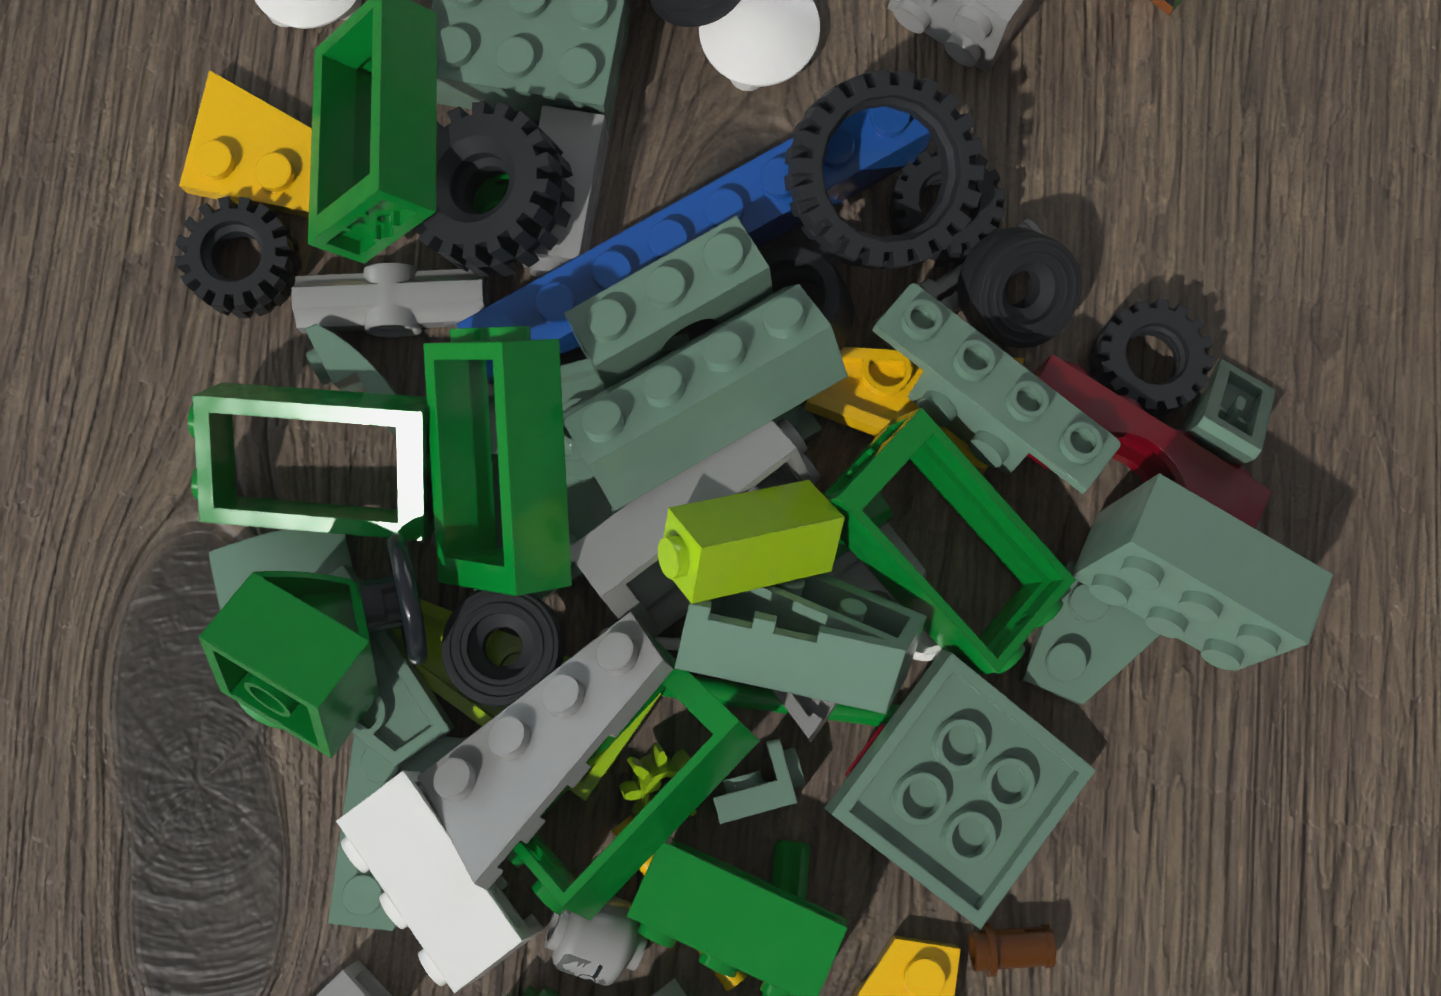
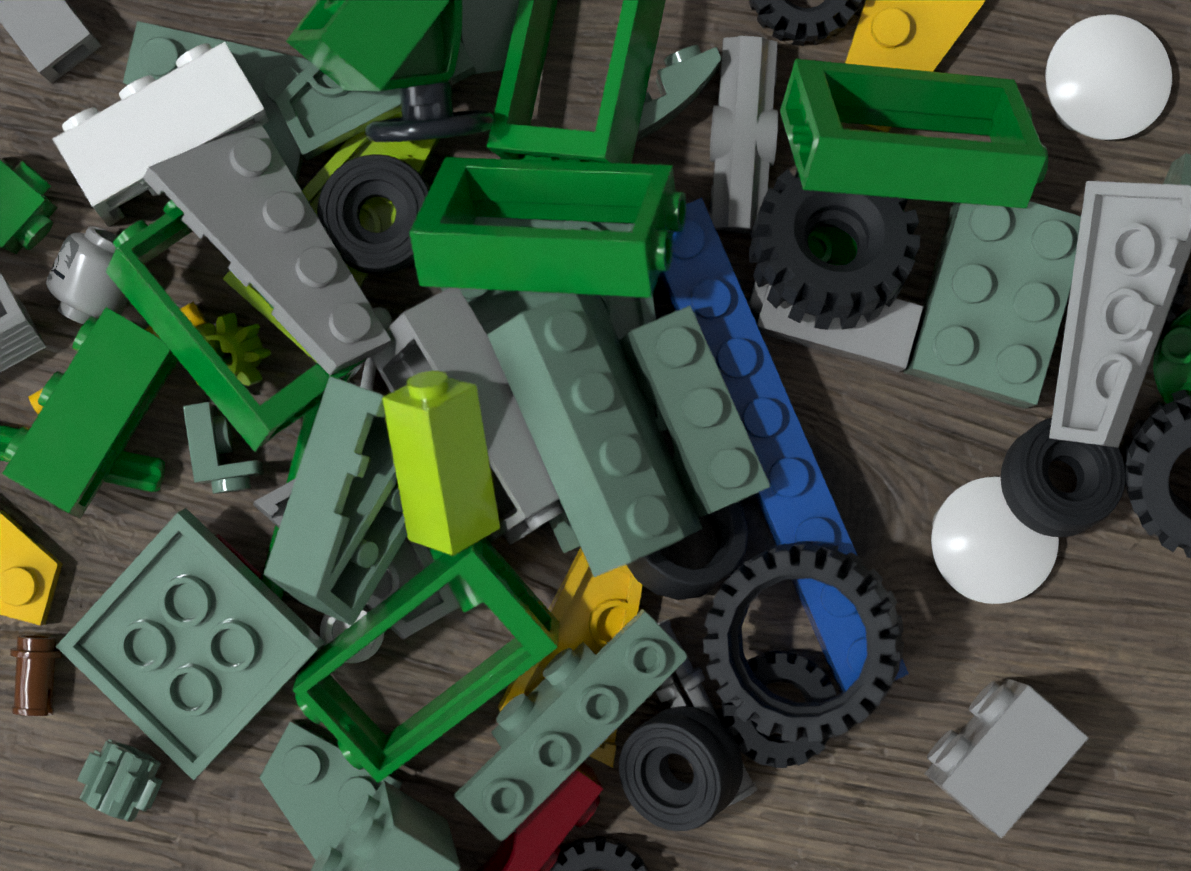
camera: 90 degrees right, 5 degrees up
(1108, 845) = (120, 780): none -> sand green gear

